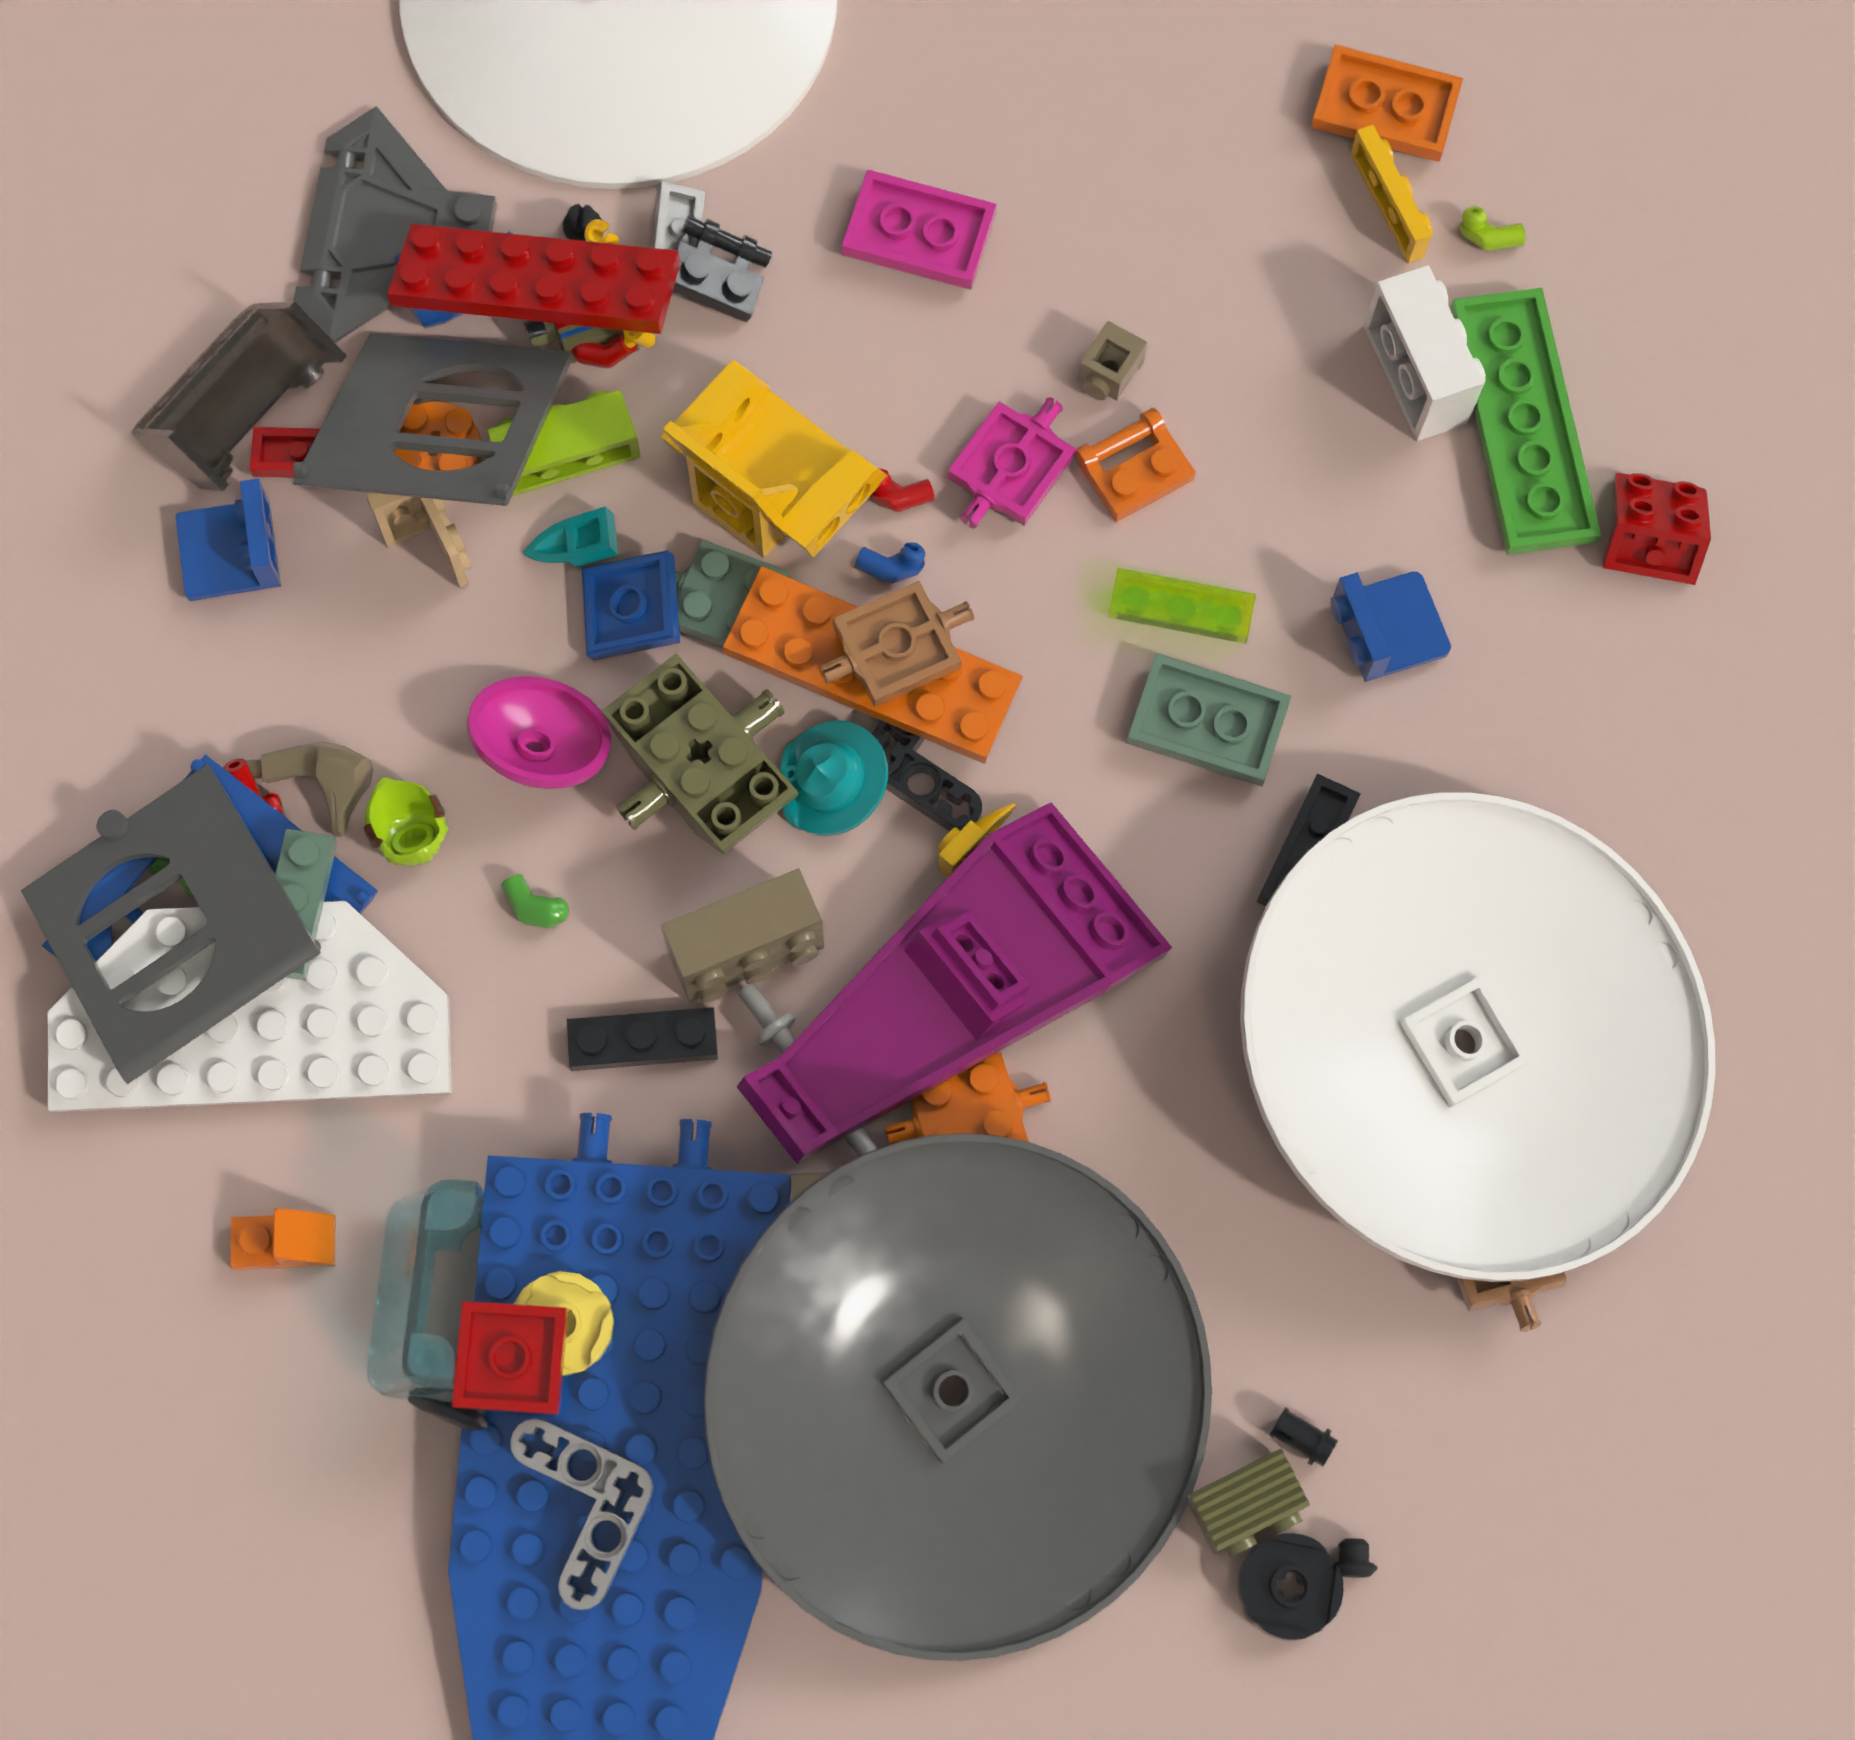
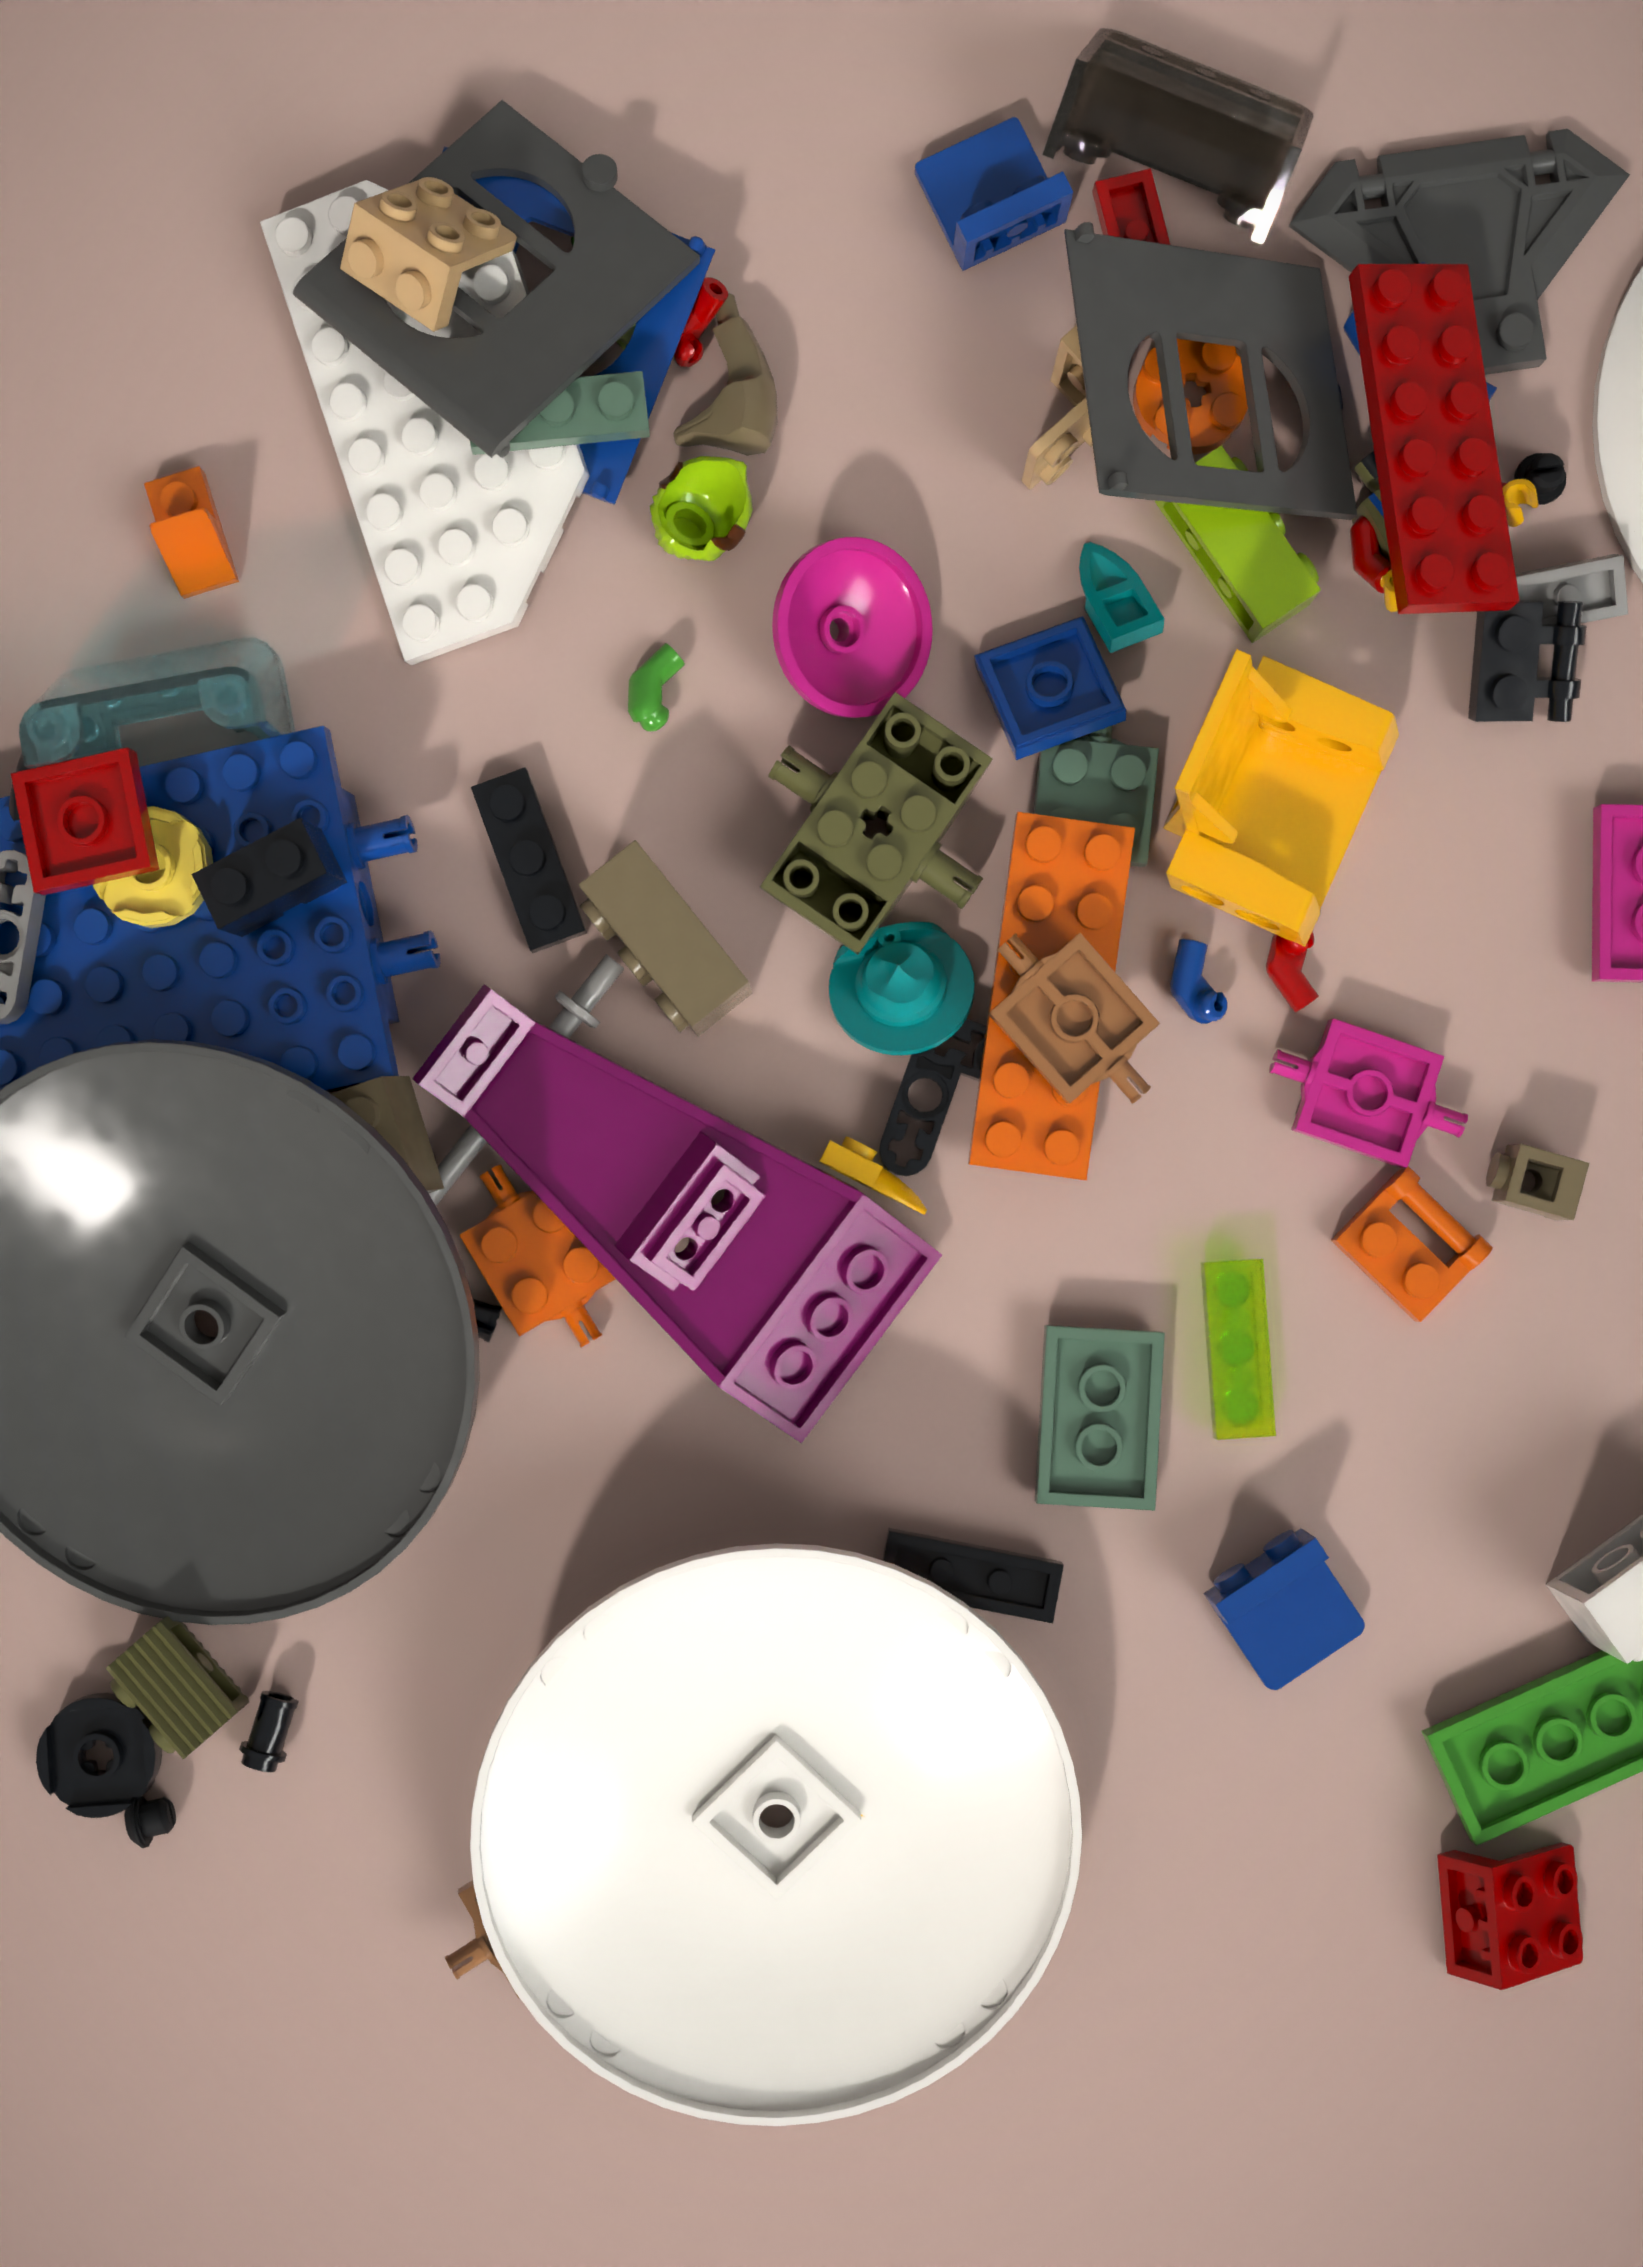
camera: 75 degrees right, 15 degrees up
(132, 965) = (418, 243): none -> tan bracket
(603, 1217) = (269, 878): none -> black brick

